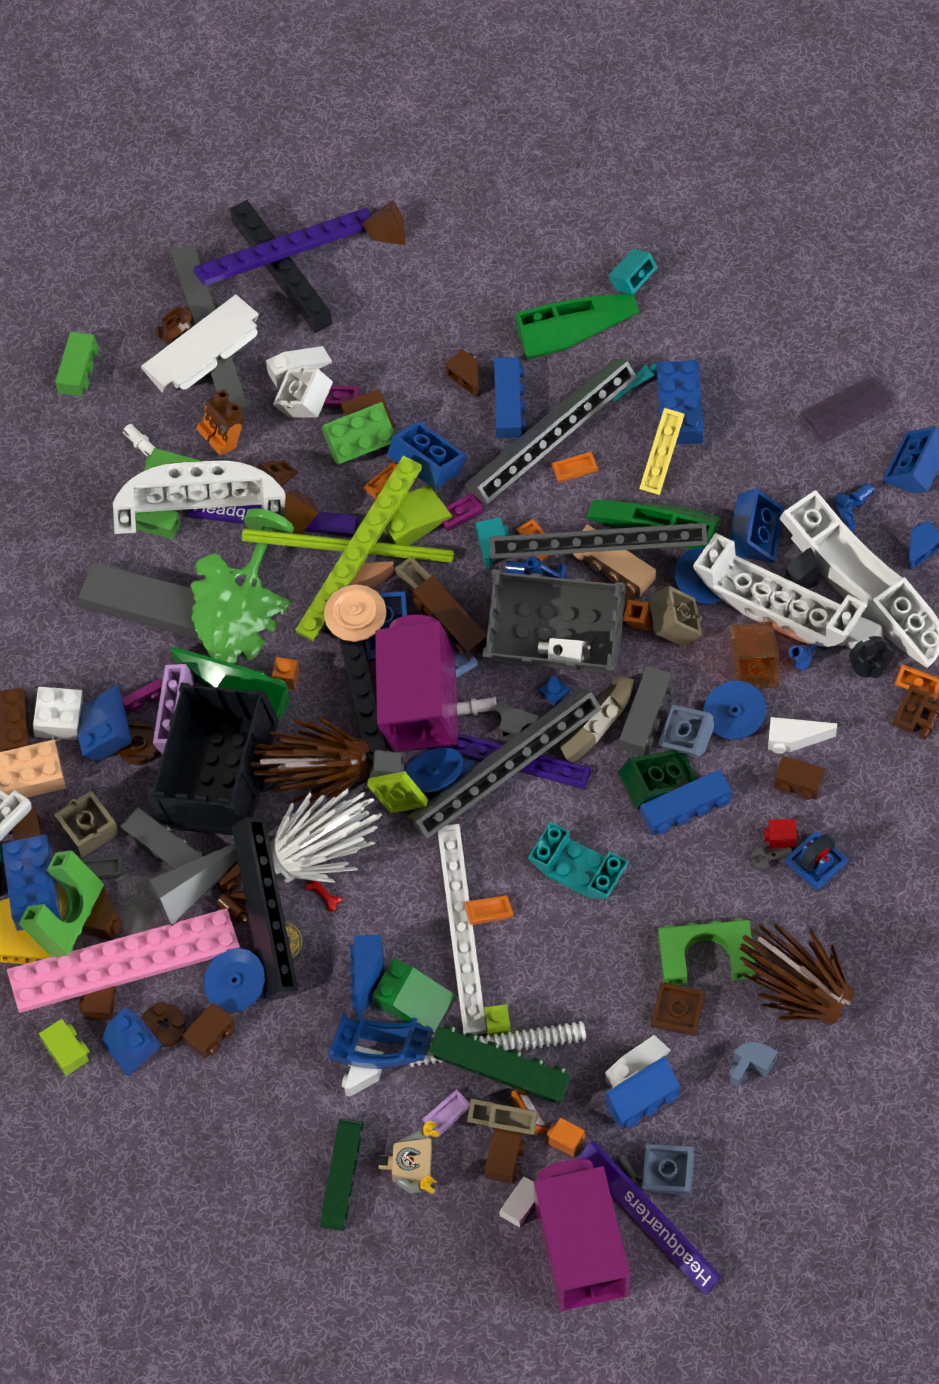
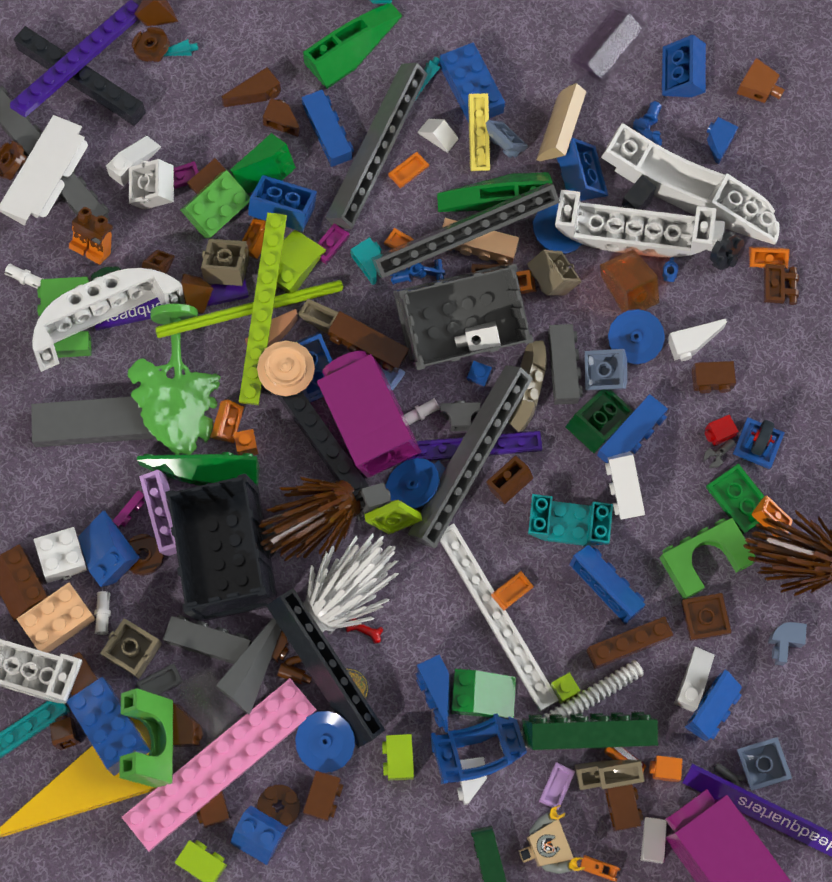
camera: 30 degrees left, 10 degrees up
(74, 782) = (102, 613): none -> white pin
(279, 645) = (227, 421): none -> orange slope
(301, 1023) = (399, 757): none -> lime brick
(343, 492) = (225, 262): none -> dark tan brick
(366, 267) = (154, 52): none -> reddish brown plate
(393, 272) = (182, 49): none -> teal piece
(430, 406) = (267, 159): none -> green slope
(449, 336) = (253, 90): none -> reddish brown slope
(451, 1203) = (596, 867): none -> orange bar
(535, 801) = (509, 479): none -> reddish brown brick
(584, 1003) = (629, 642): none -> reddish brown brick
(588, 937) = (607, 584): none -> blue slope
(623, 442) = (439, 133): none -> white slope
(648, 845) = (625, 486): none -> white slope
(688, 466) = (504, 137): none -> sand blue slope
(755, 471) = (562, 123): none -> tan slope
(770, 903) = (737, 497): none -> green plate
(795, 927) = (769, 509): none -> orange slope

